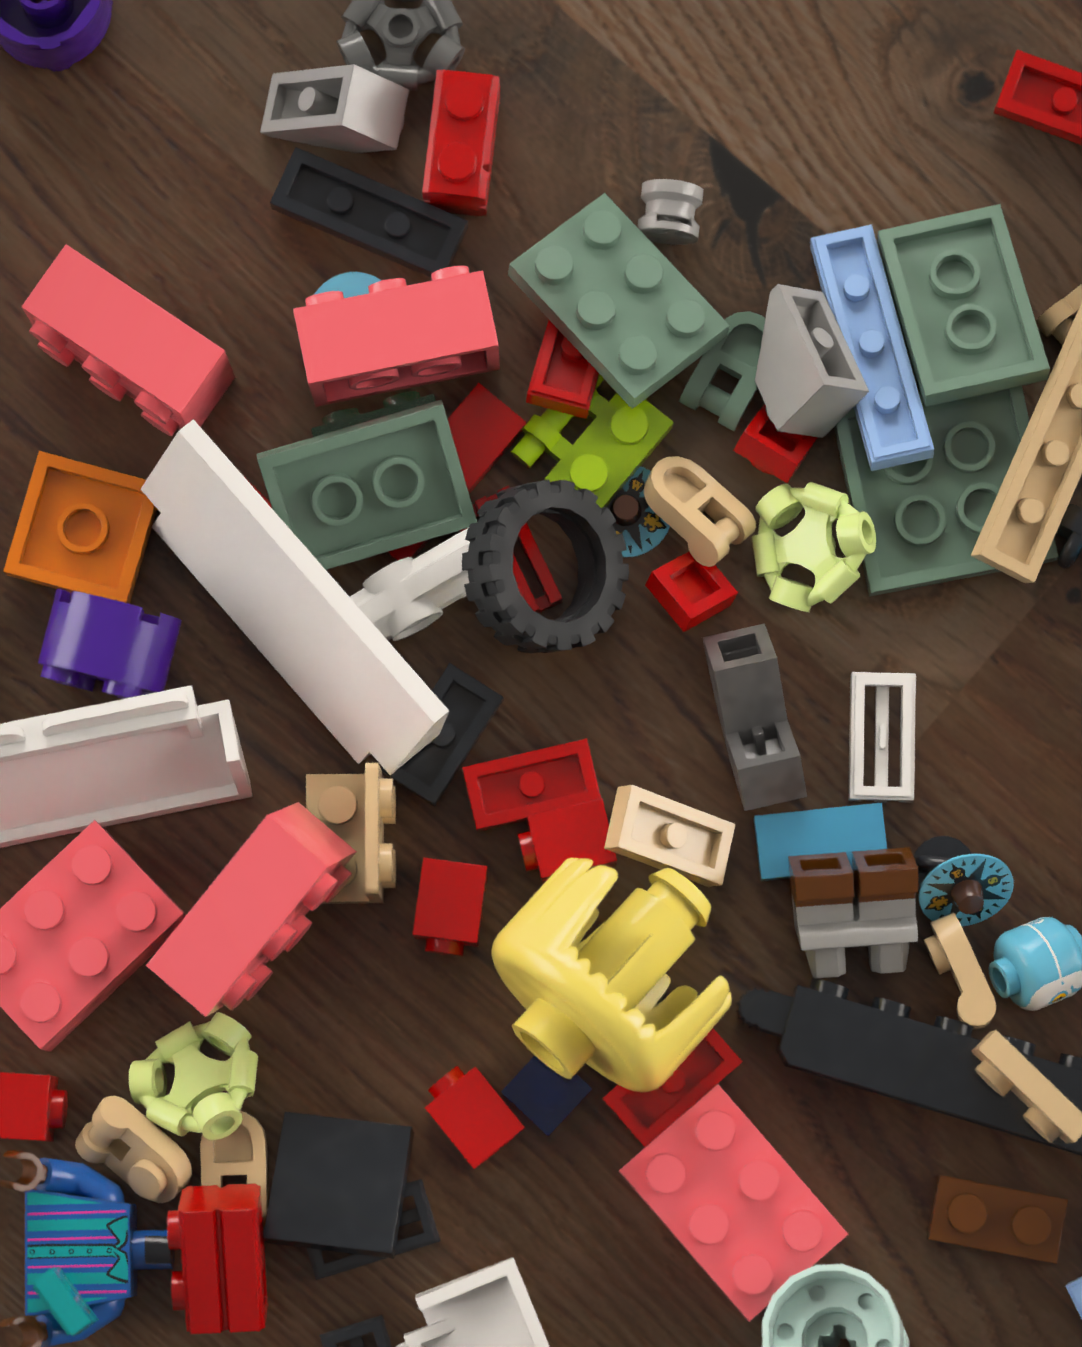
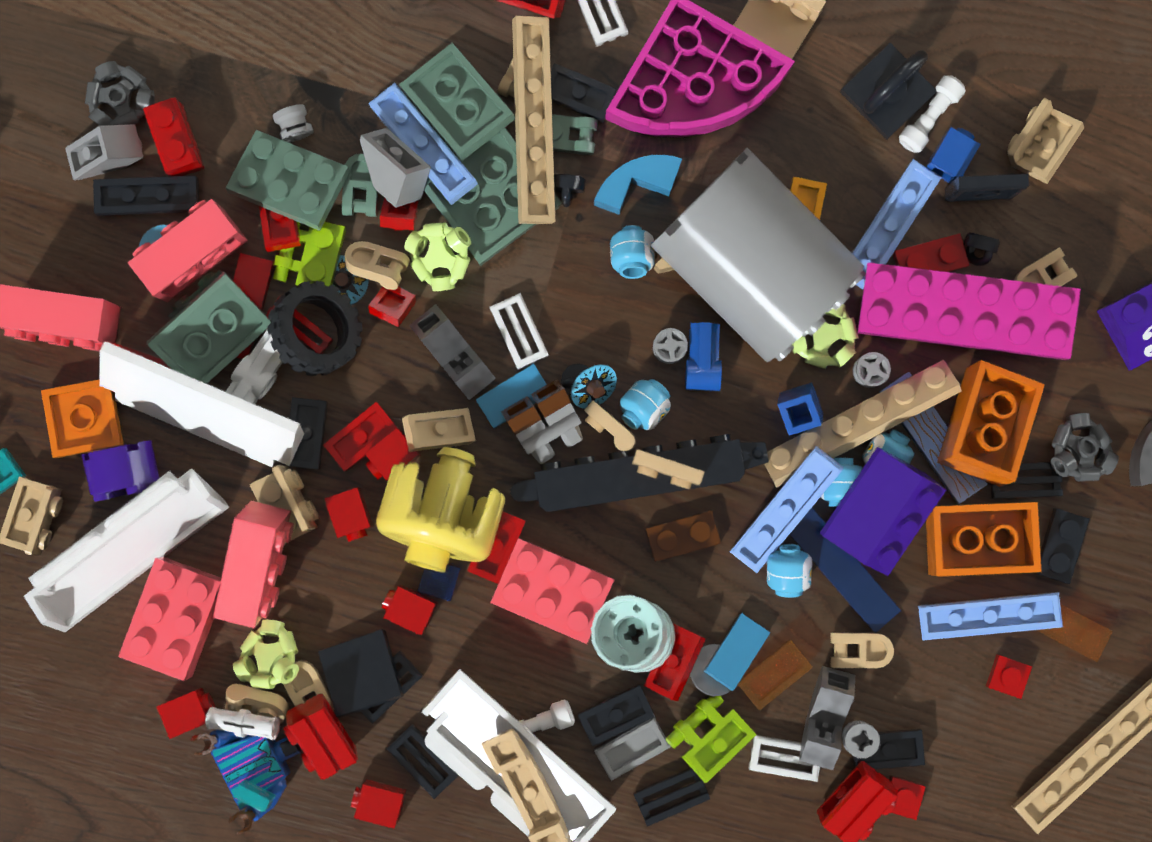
camera: 30 degrees left, 5 degrees up
(103, 1169) = (242, 723): none -> white pin

